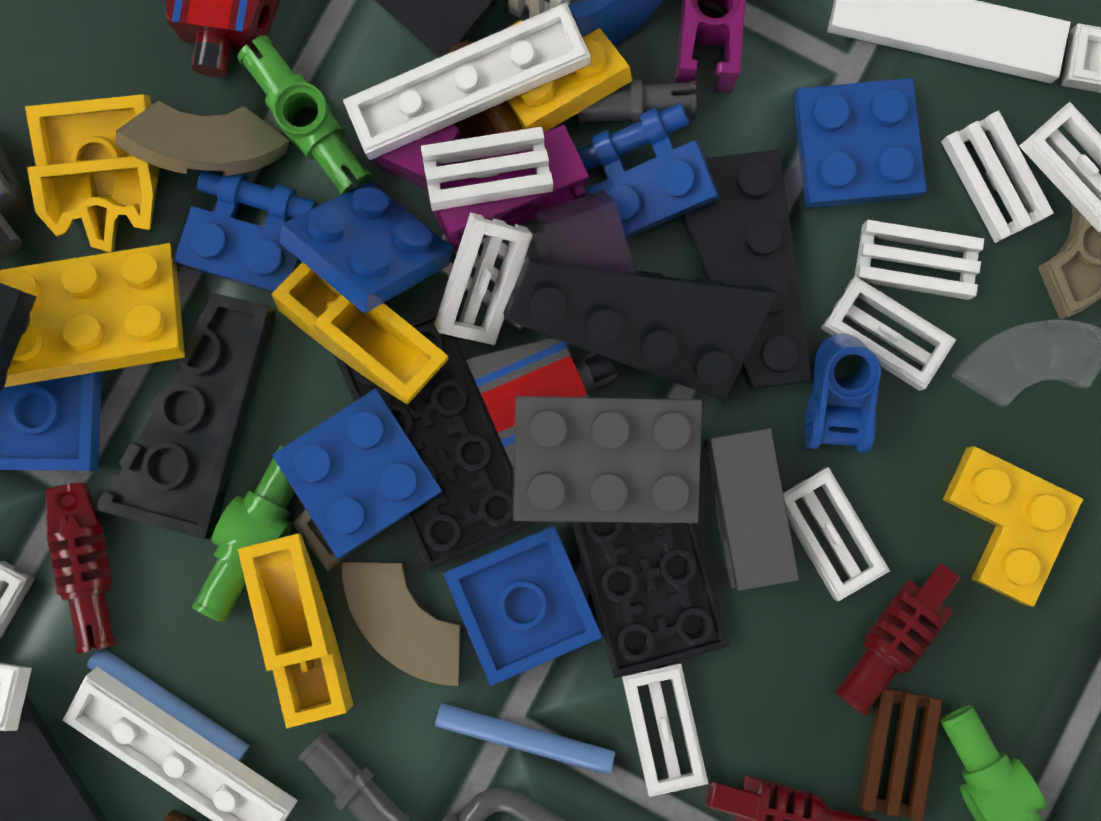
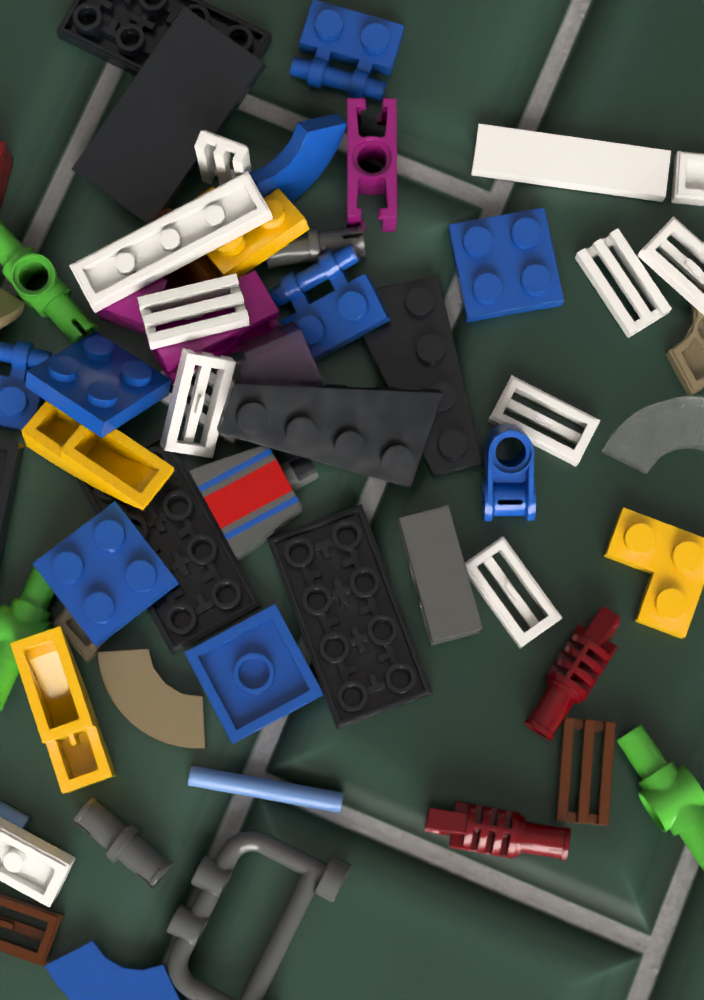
camera: 10 degrees left, 5 degrees down
(606, 459) = (313, 542): dark grey plate -> none
(676, 780) = (397, 812): white tile -> none
(967, 266) = (566, 338): white tile -> none

